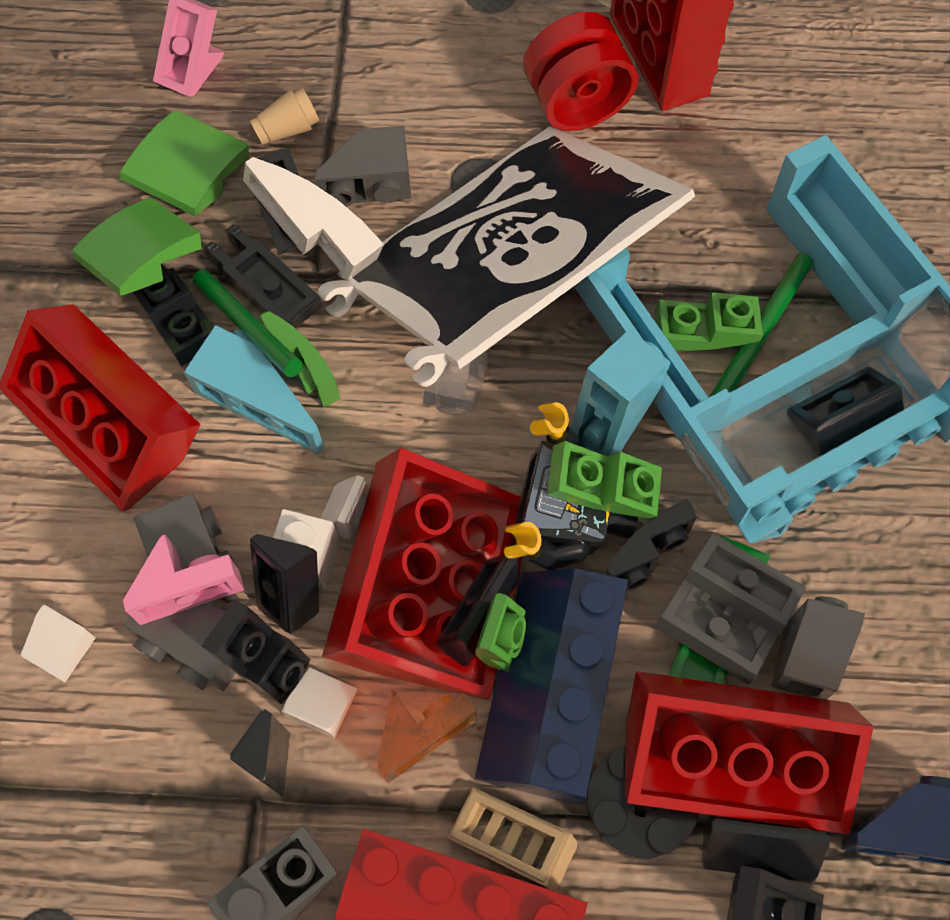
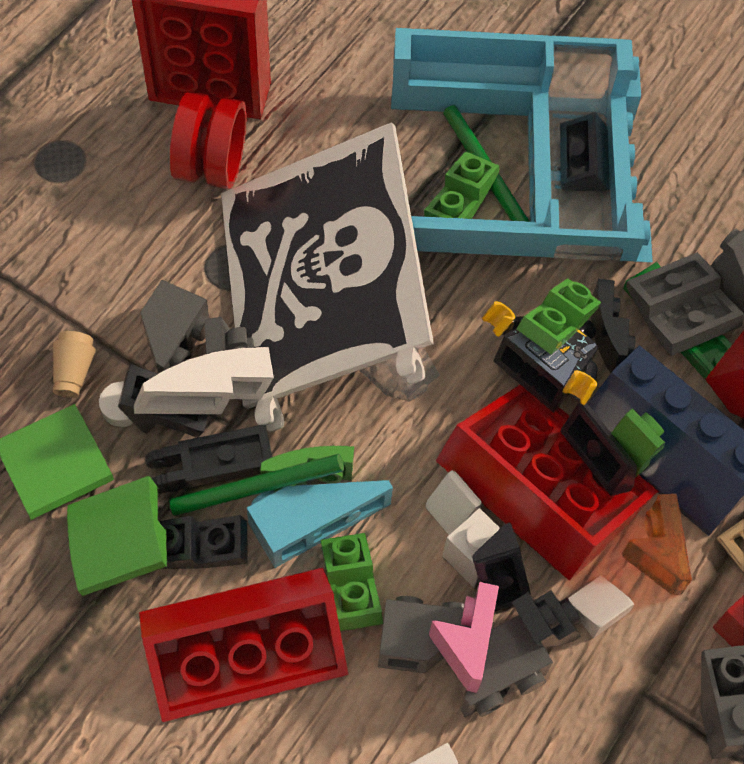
camera: 65 degrees left, 5 degrees down
(217, 459) = (352, 581): none -> bright green slope
(264, 751) = (633, 651): black slope -> none
(382, 214) = (221, 337): none -> dark grey tile
(618, 393) = (512, 262): medium azure slope -> none

